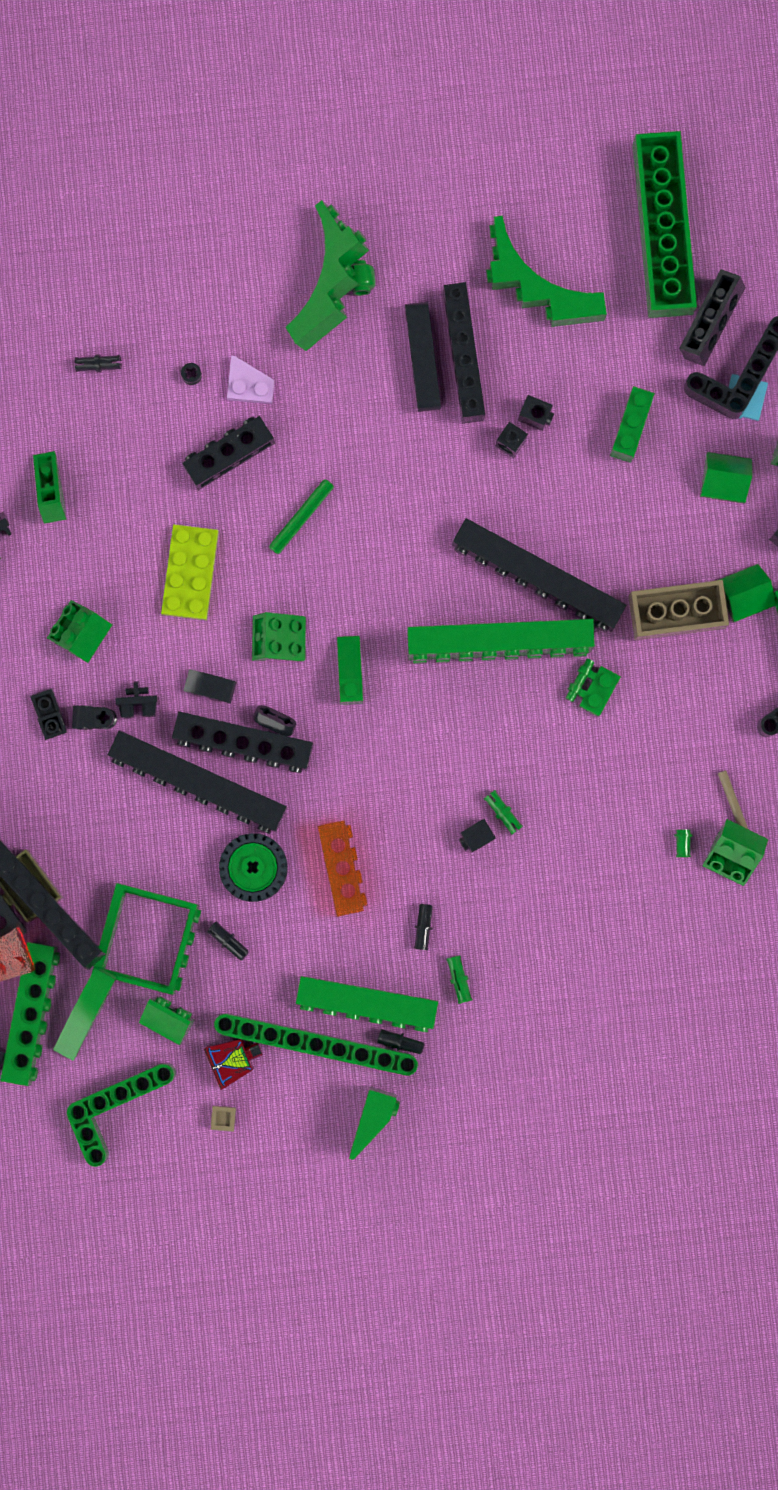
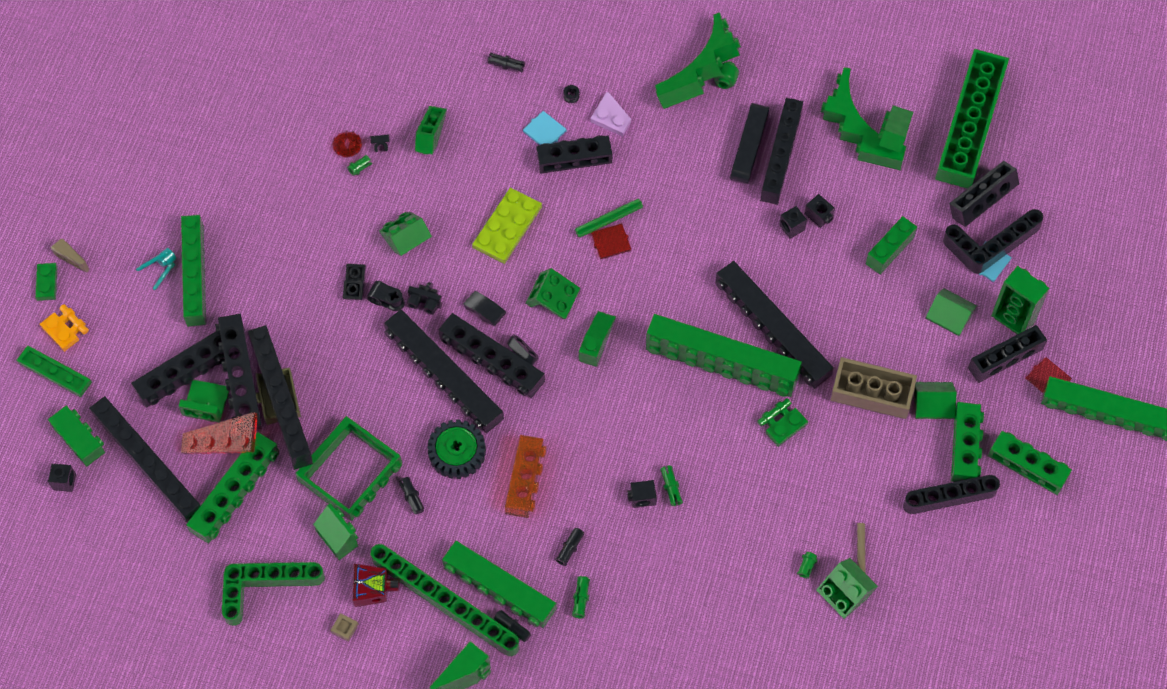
camera: 25 degrees right, 20 degrees down
(84, 1013) = (276, 501): green slope -> none
(180, 432) = (544, 129): none -> medium azure piece
(315, 543) = (611, 241): none -> clear red piece
(584, 276) = (895, 128): none -> green brick

